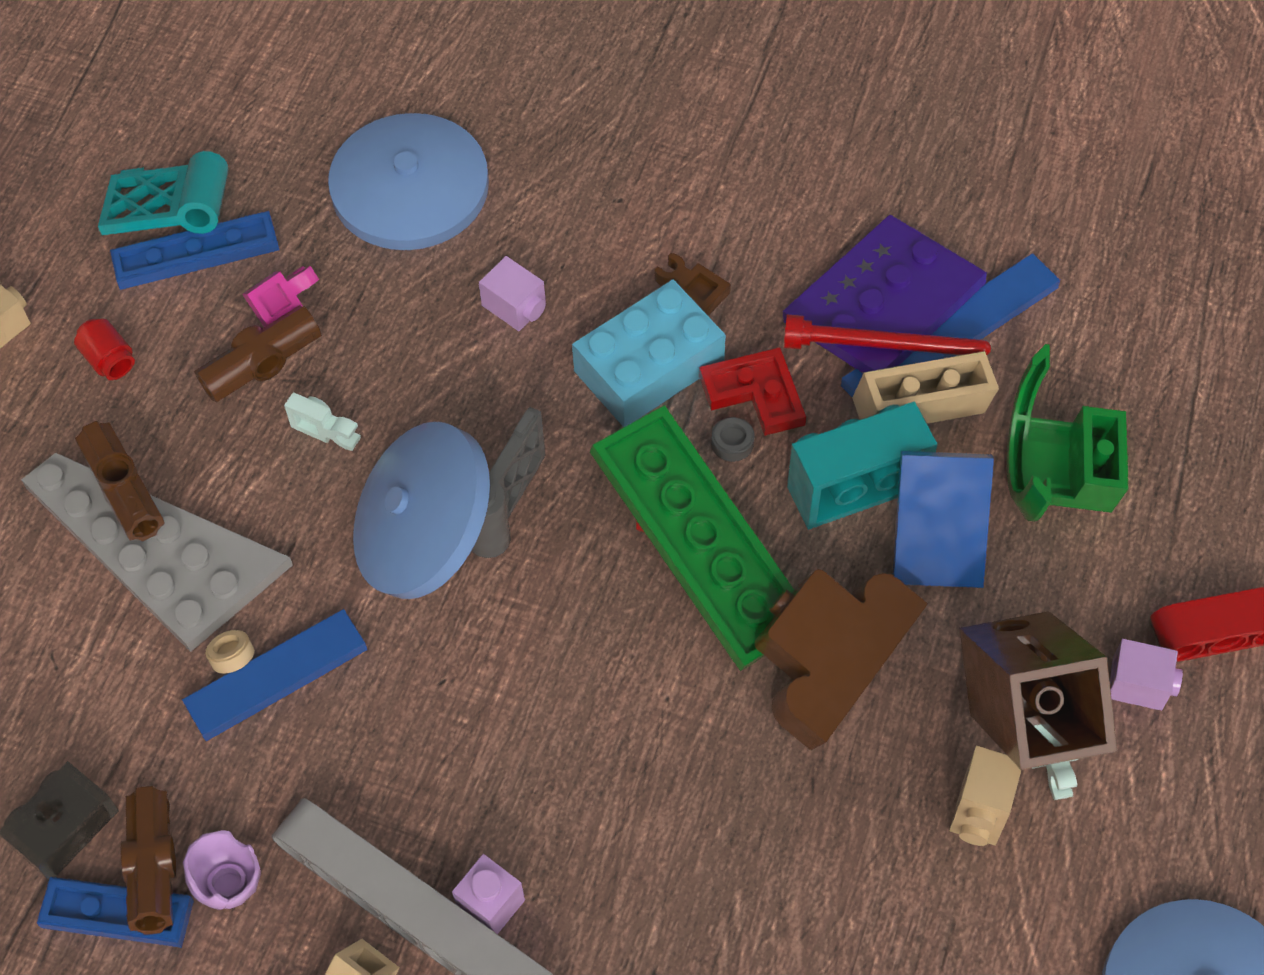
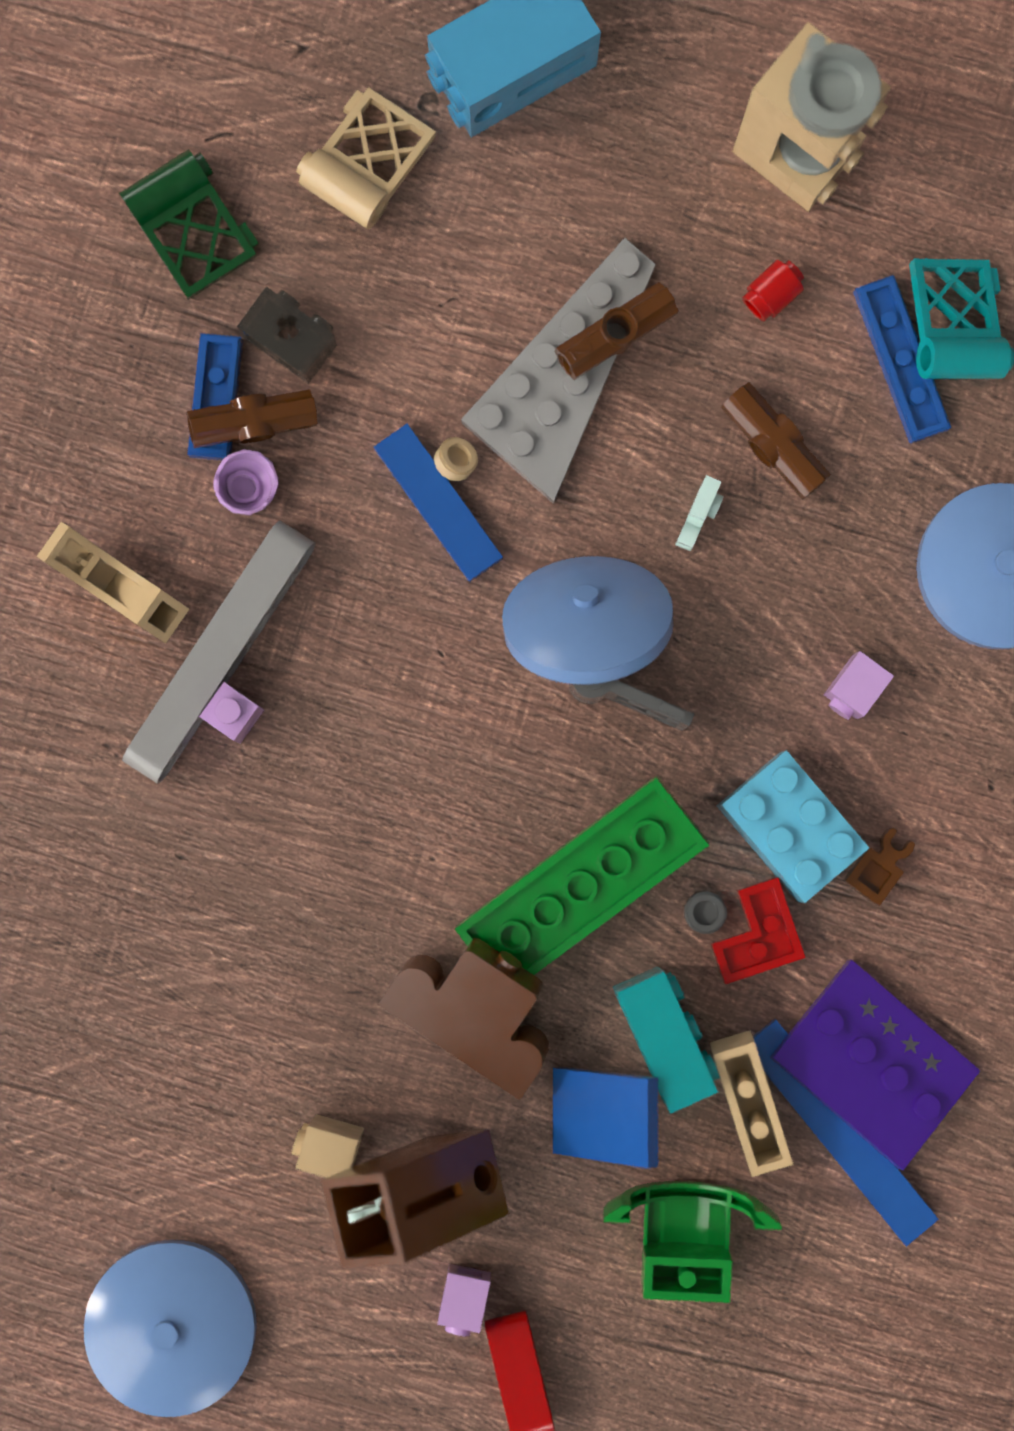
camera: 85 degrees right, 25 degrees up
(277, 295) = (842, 450): dark pink plate -> none
(802, 332) = (816, 980): red piece -> none

